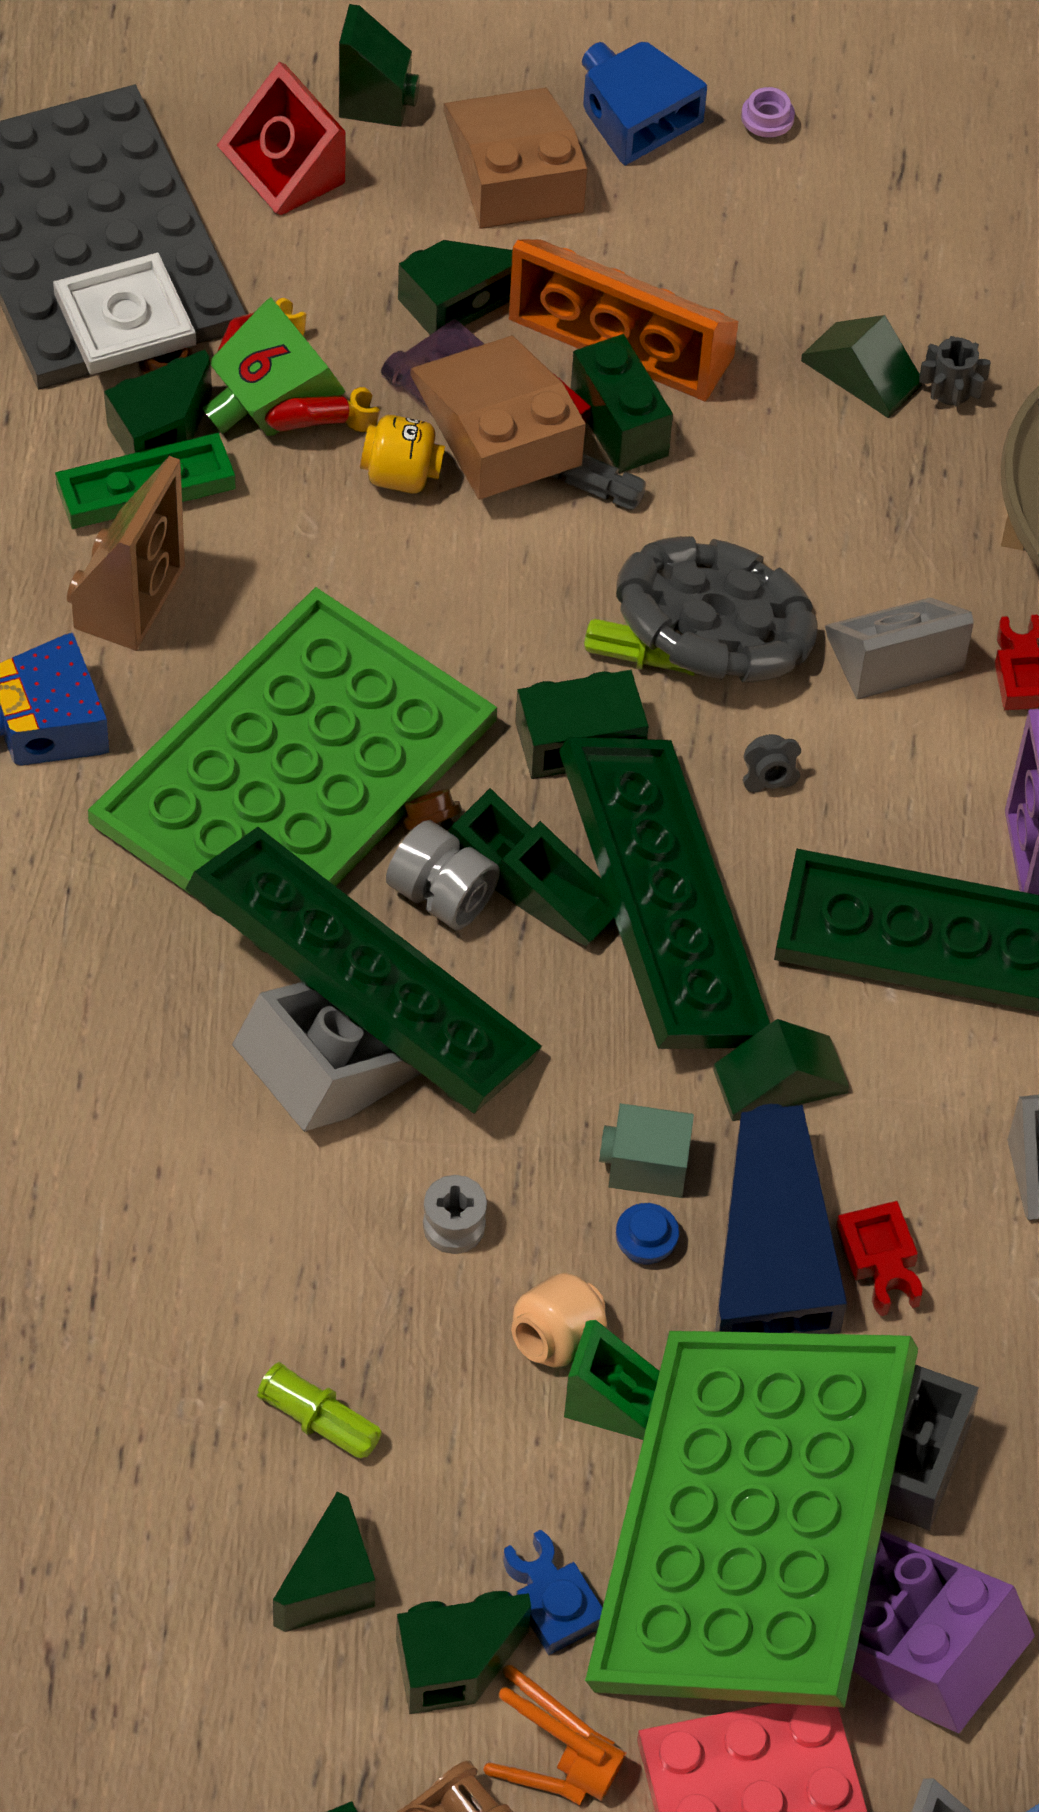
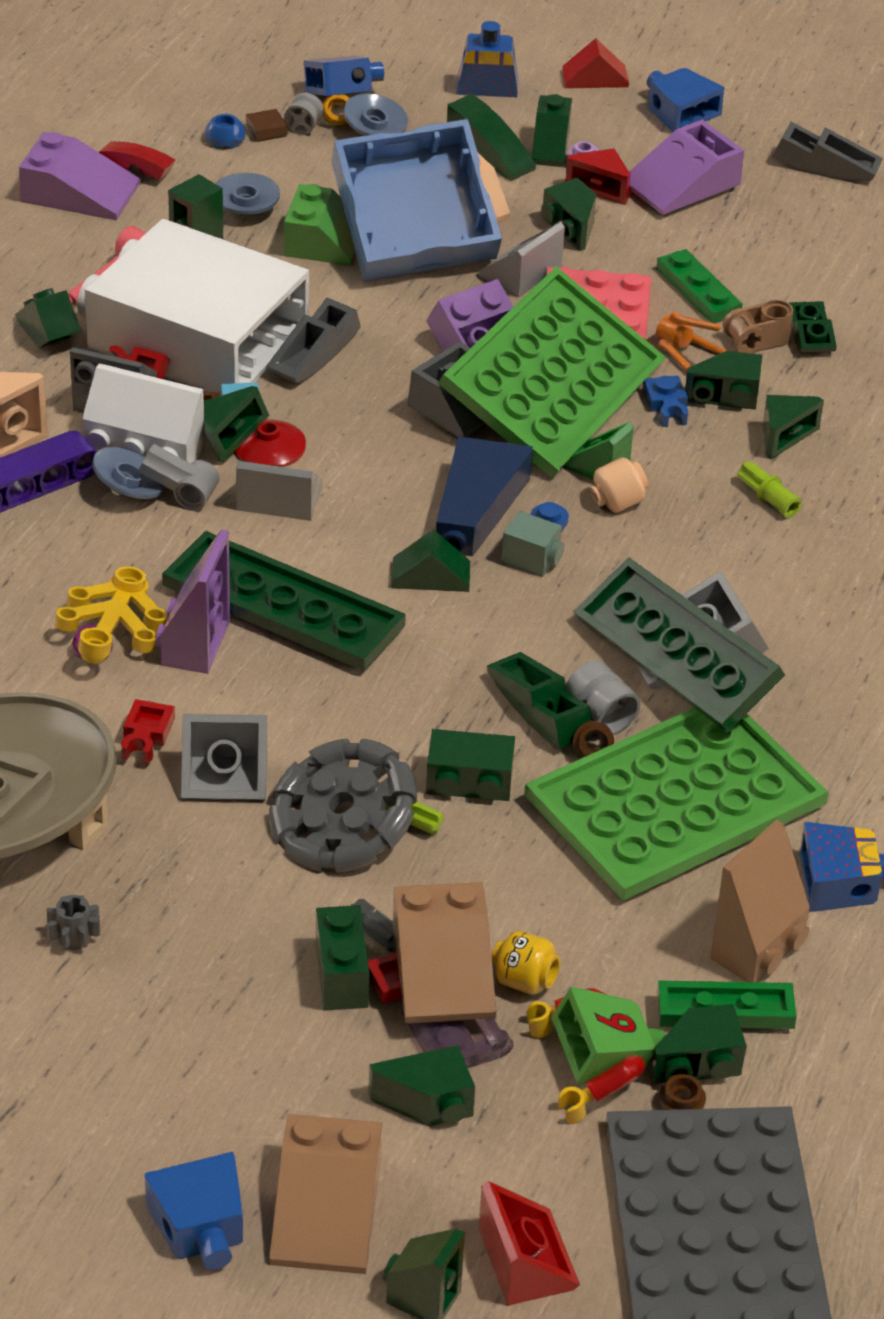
camera: 160 degrees left, 15 degrees down
(124, 313) = (710, 1116): white tile -> none
(454, 1230) = (659, 547): light grey wheel -> none
(590, 303) = (308, 1010): orange slope -> none
(664, 892) = (462, 653): dark green plate -> none
(768, 112) = (89, 1167): lavender plate -> none
(771, 763) = (353, 714): dark grey plate -> none
(866, 362) = (138, 959): dark green slope -> none
(881, 1248) = (419, 476): red plate -> none

